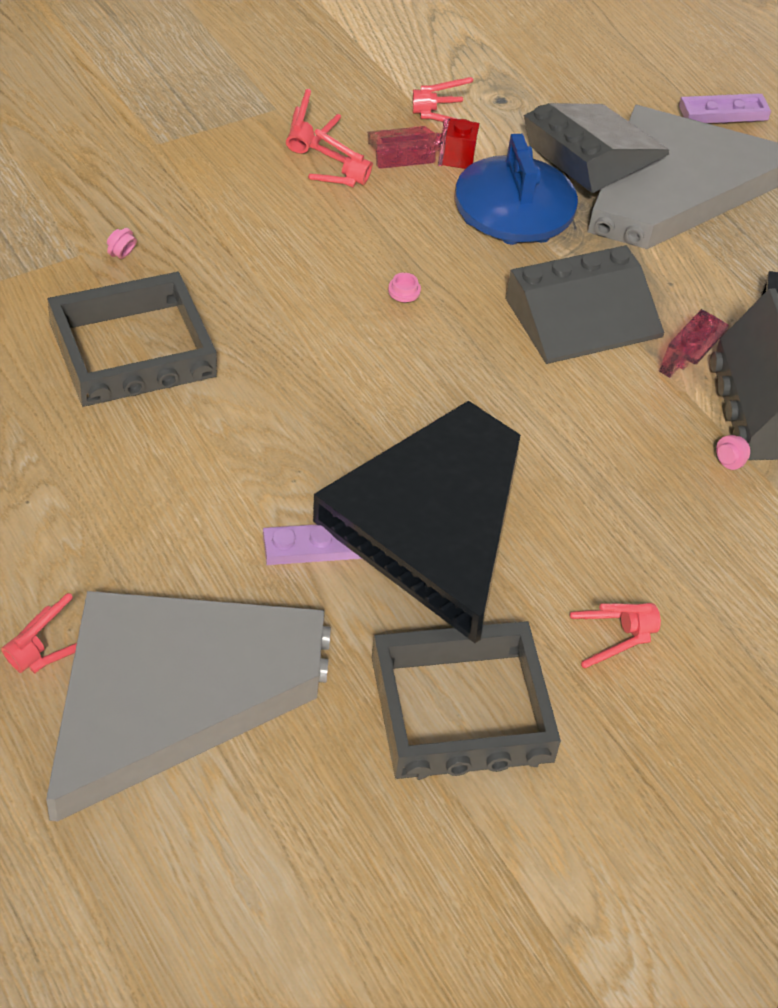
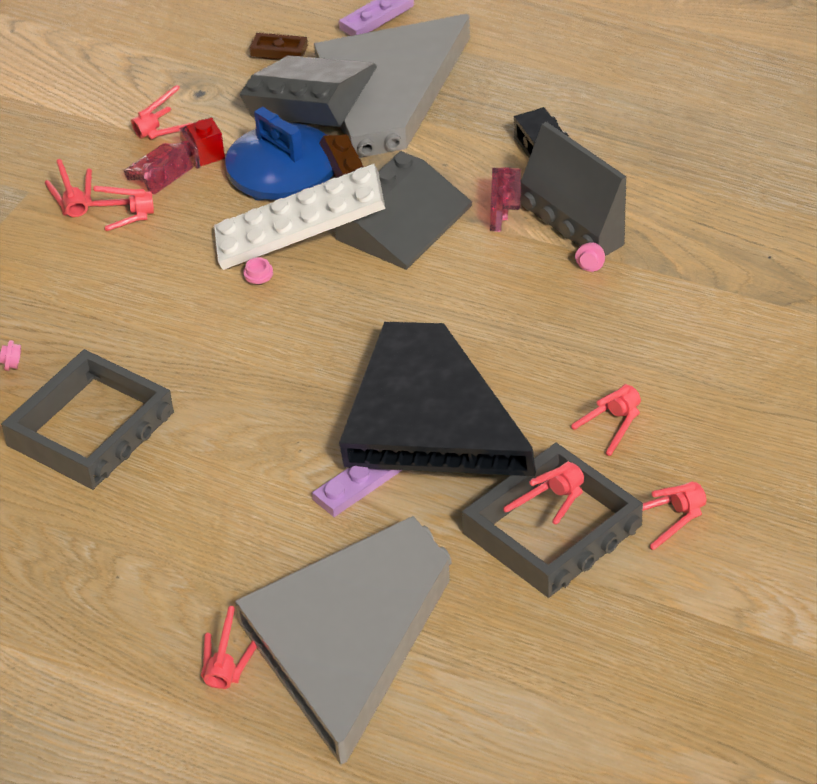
camera: 25 degrees left, 5 degrees down
(479, 256) = (299, 216): none -> white plate
(494, 665) = (562, 481): none -> coral plant
(572, 226) = (340, 154): none -> reddish brown plate
(607, 92) = (278, 45): none -> reddish brown plate
(618, 763) = (684, 498): none -> coral plant

